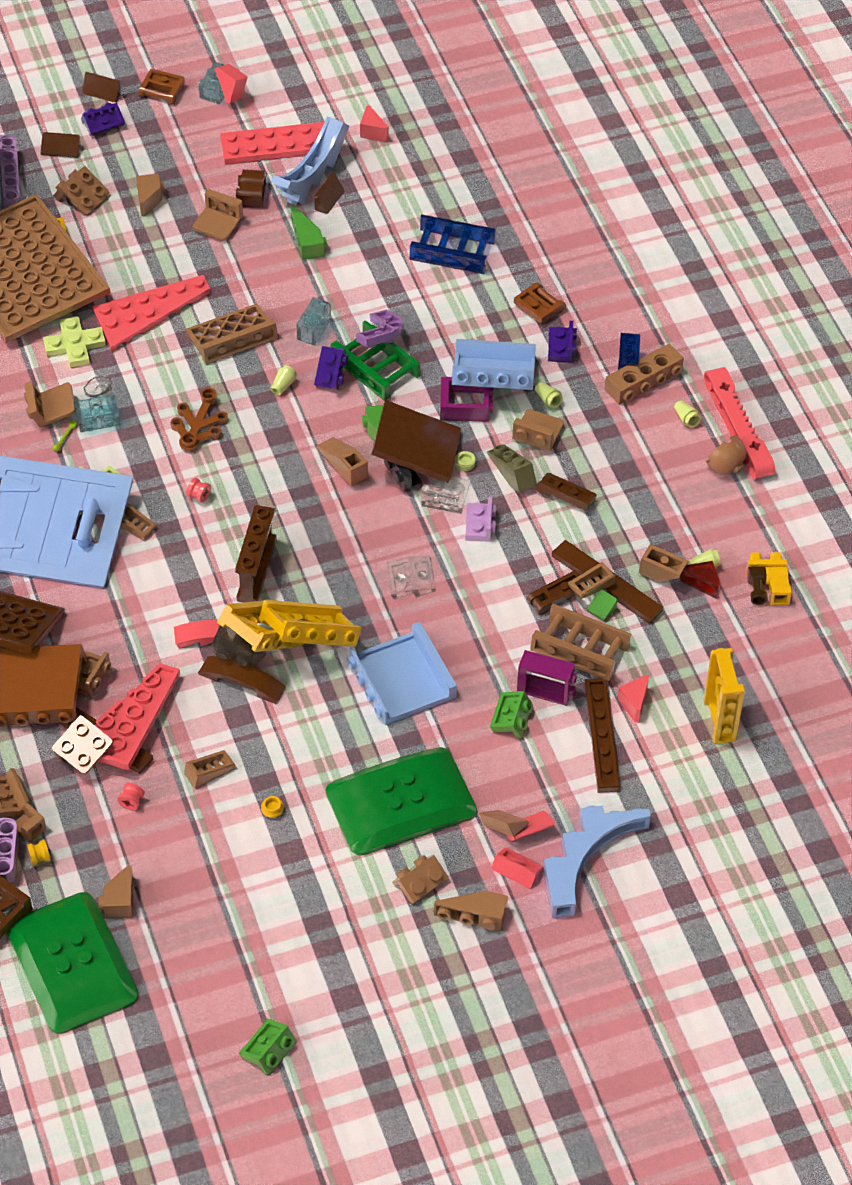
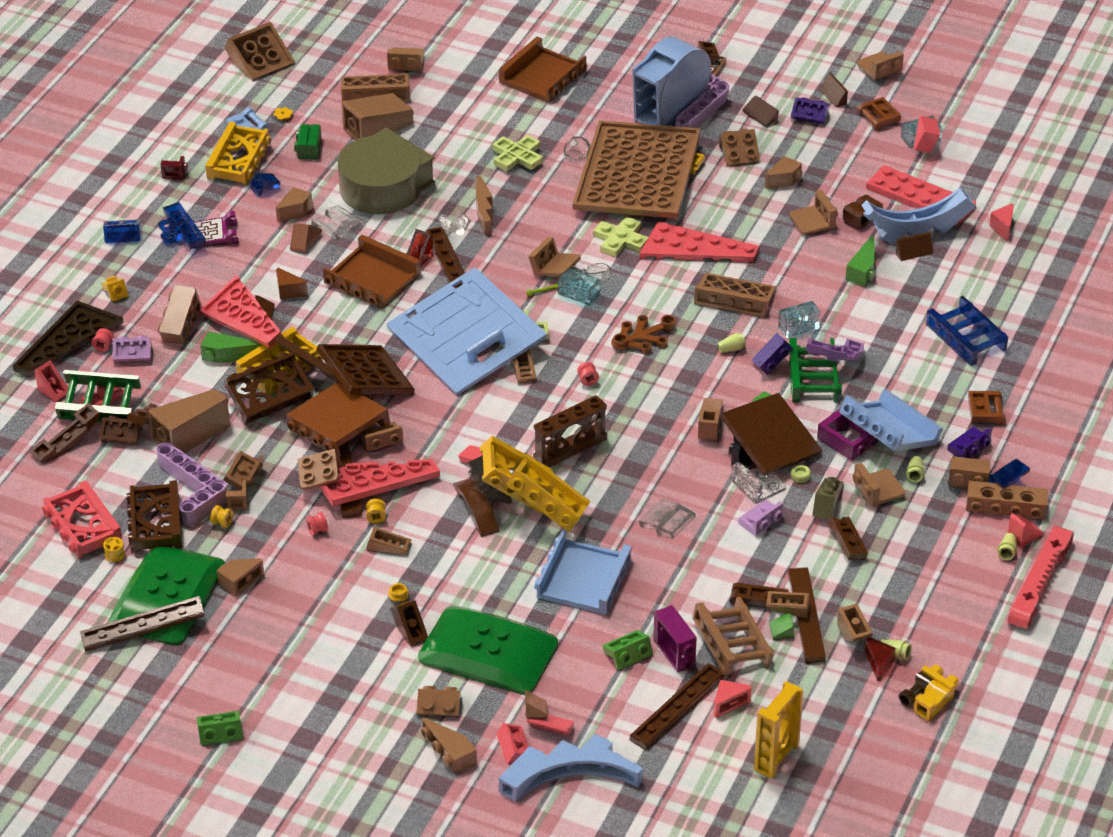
camera: 45 degrees right, 10 degrees down
(91, 1007) = (142, 623): none -> tile
(112, 39) = (882, 64): none -> medium nougat bracket
(167, 746) = (376, 511): none -> yellow wheel
(315, 825) = (409, 622): none -> reddish brown slope
(591, 369) = (968, 469): none -> medium nougat bracket
(683, 391) = (1023, 530): none -> coral slope
(728, 457) = (999, 590): medium nougat cylinder -> none

